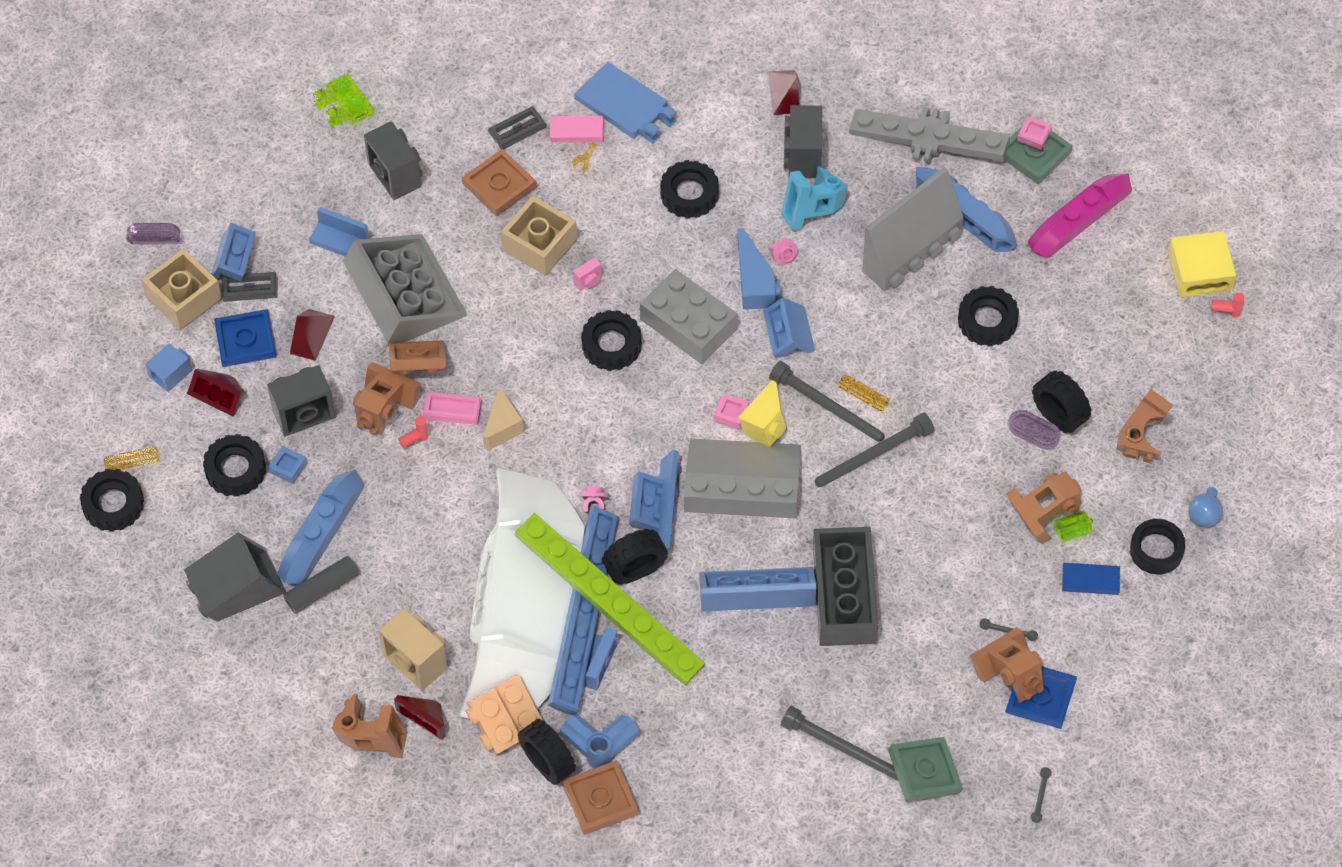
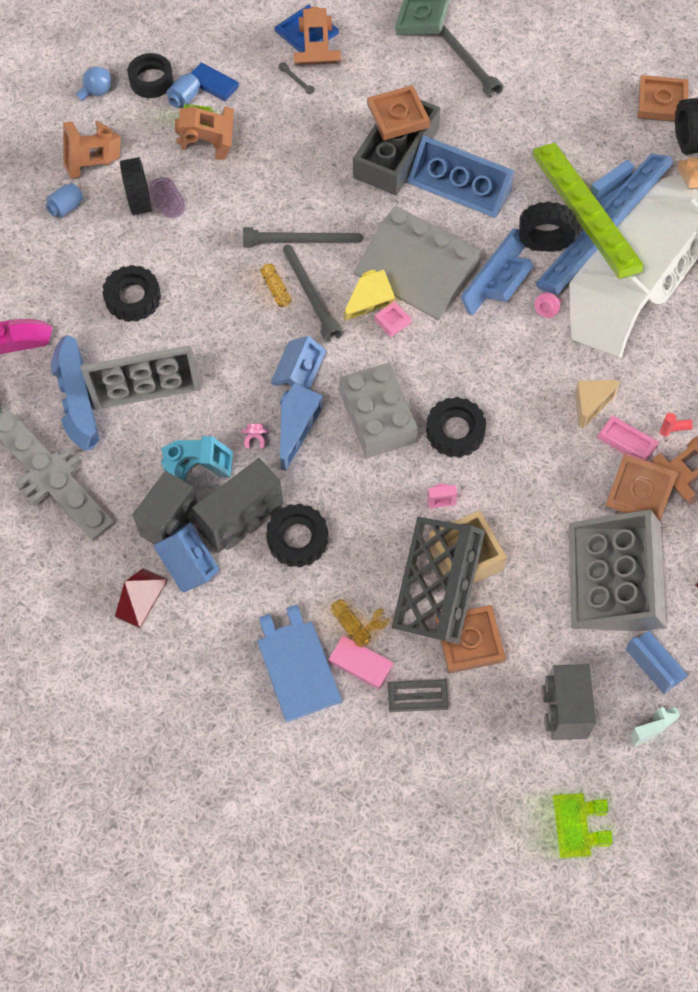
camera: 150 degrees left, 5 degrees up
(317, 185) = (663, 720): none -> light aqua slope
(530, 190) = (460, 579): none -> dark grey fence
(589, 740) = (646, 126): medium blue piece -> none
(601, 146) = (351, 623): none -> clear yellow axle
(748, 174) = (239, 505): none -> dark grey brick
(760, 125) = (187, 558): none -> medium blue panel
(855, 588) = (398, 112): none -> nougat plate
(1109, 545) = (183, 90): none -> medium blue brick
(1126, 370) = (63, 200): none -> medium blue brick

